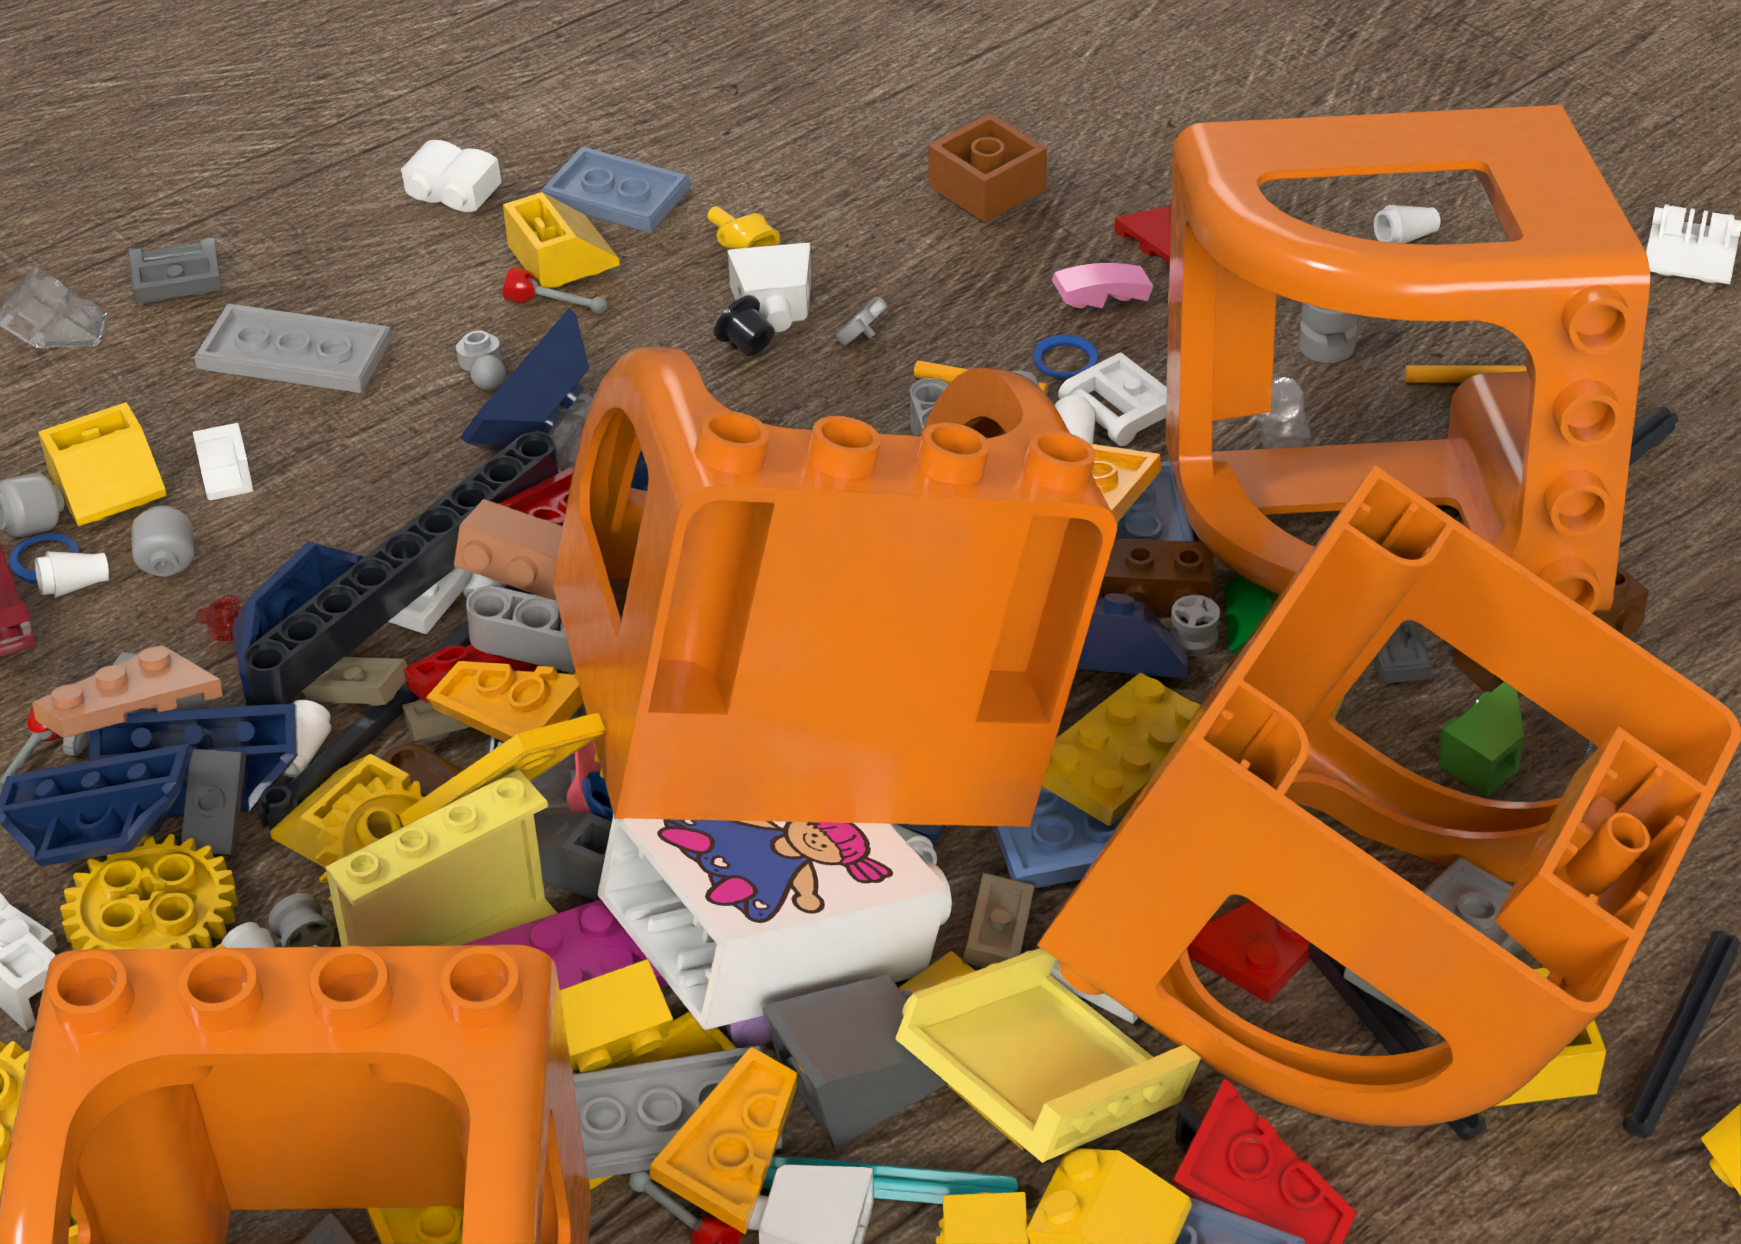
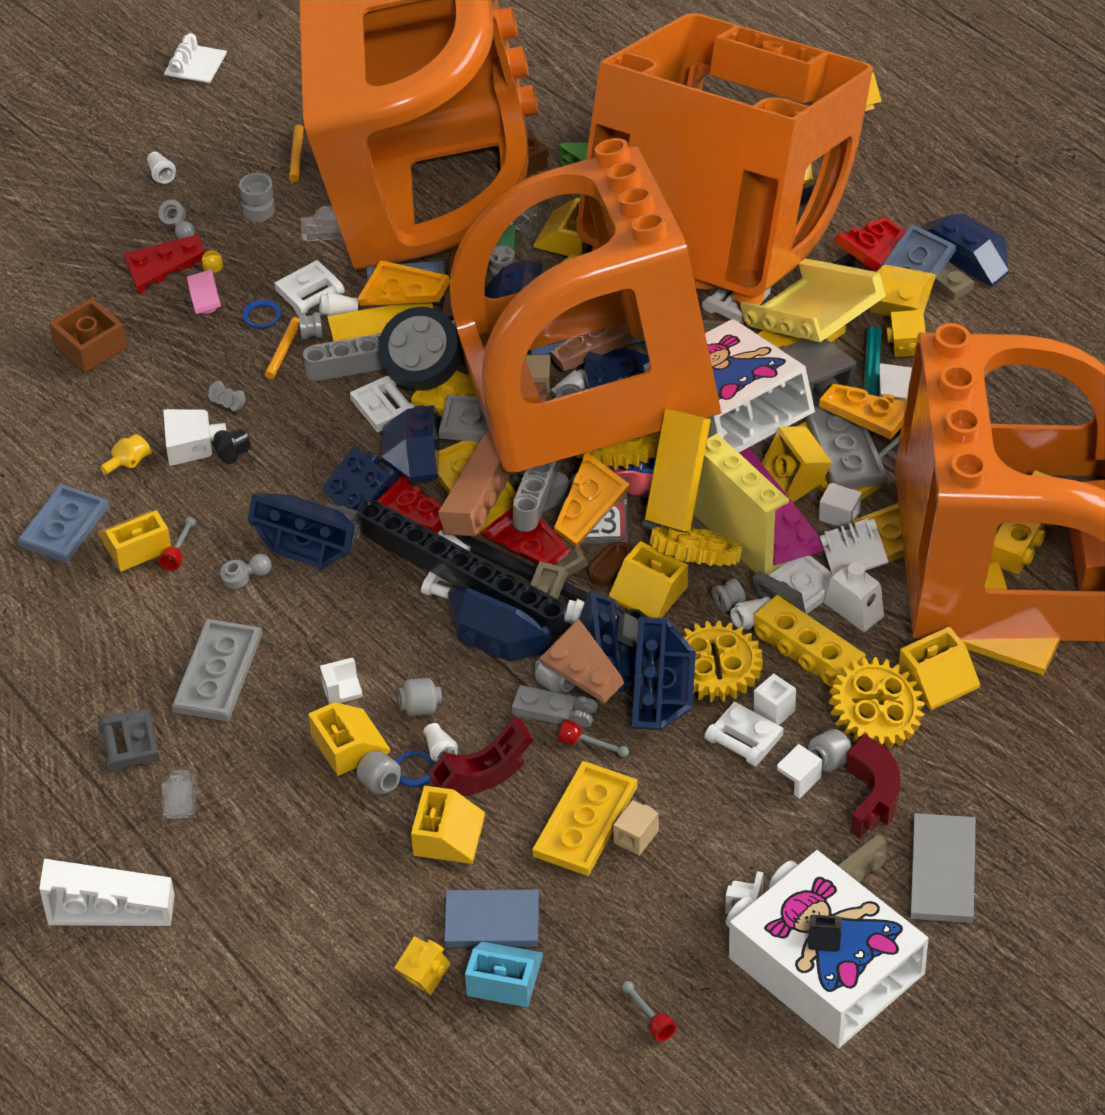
camera: 90 degrees left, 5 degrees up
(220, 617) = (480, 665): clear red plate -> none
(451, 175) = (46, 601): white brick -> none

